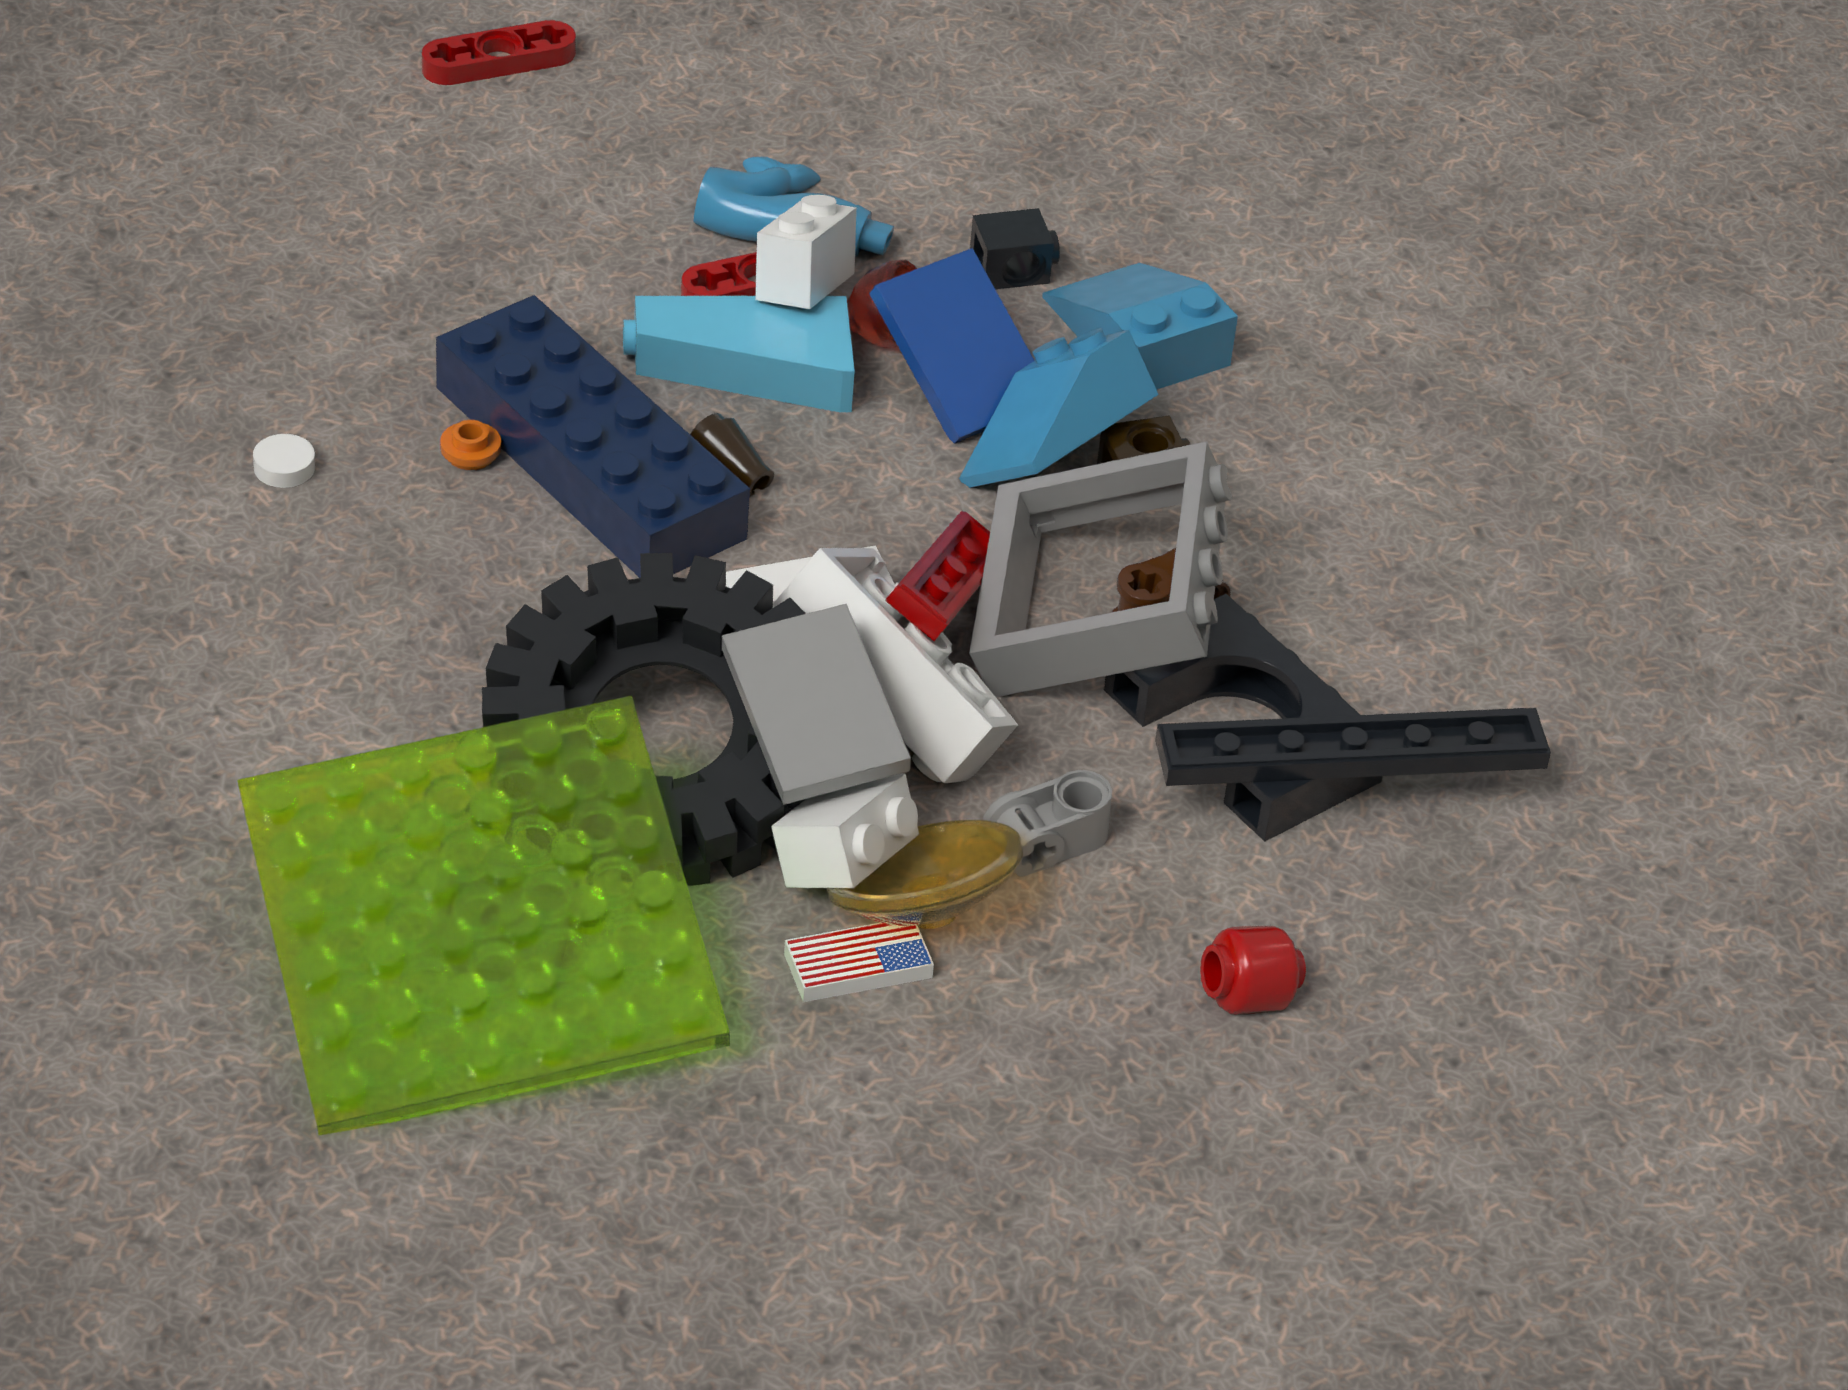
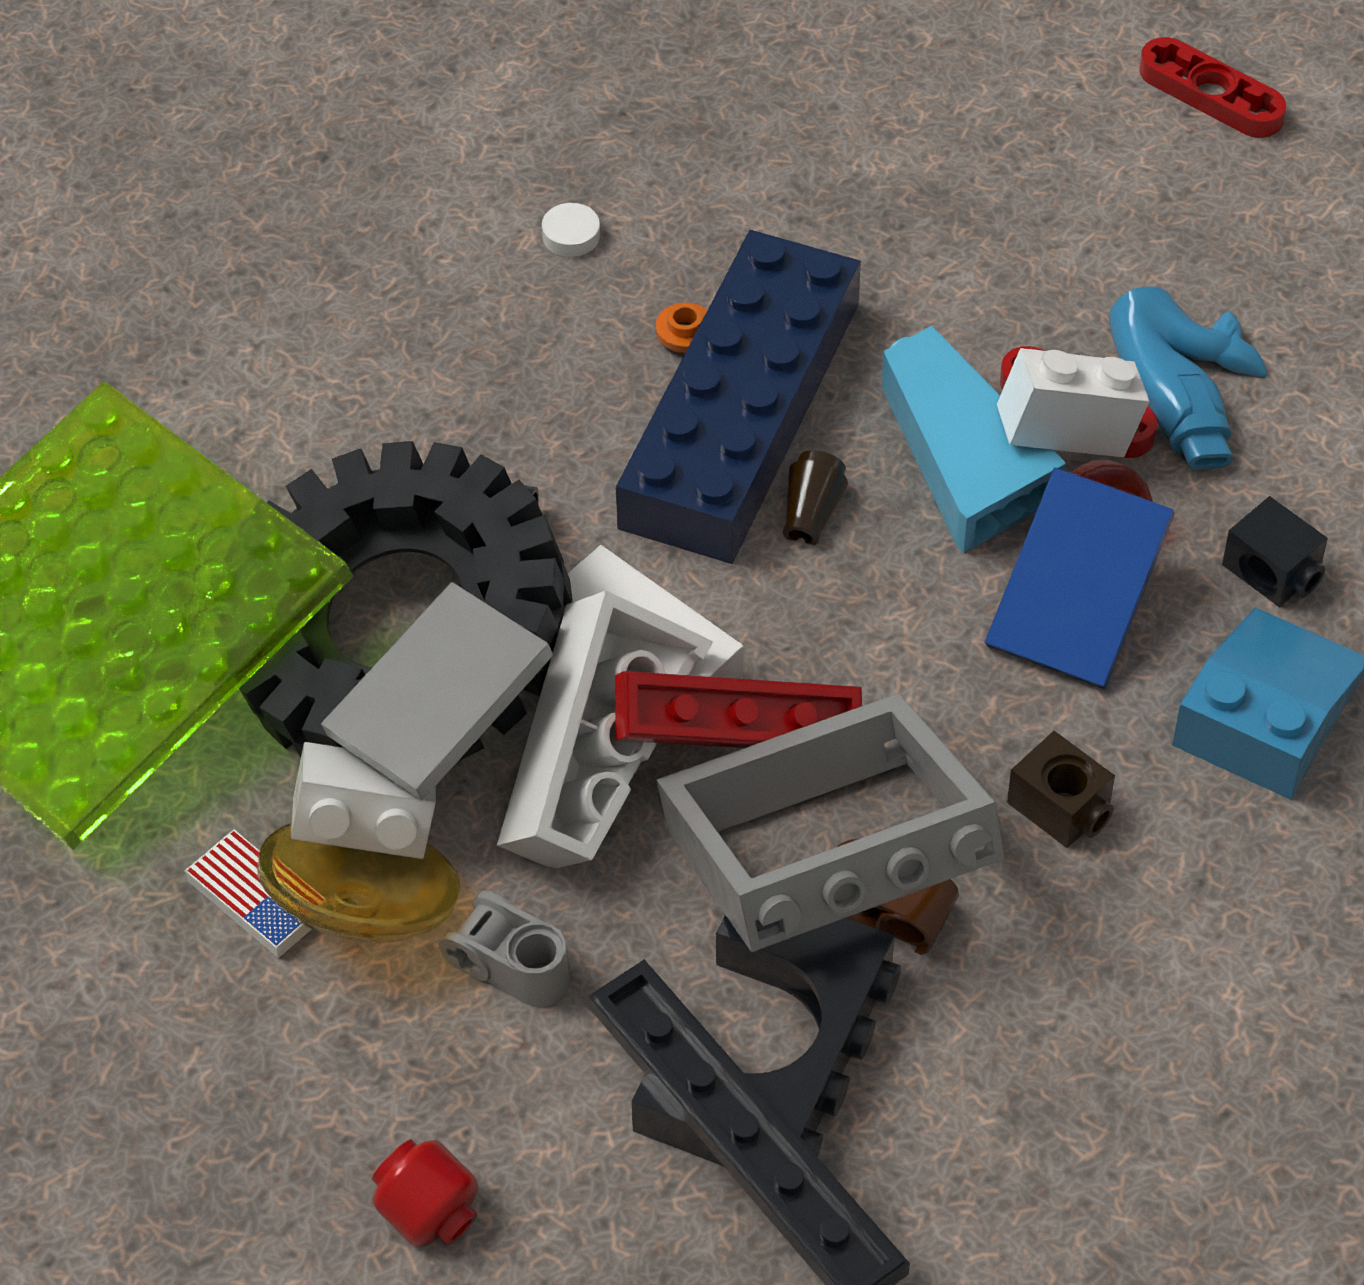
camera: 65 degrees right, 10 degrees up
(1060, 405) = (1056, 688): dark azure slope -> none

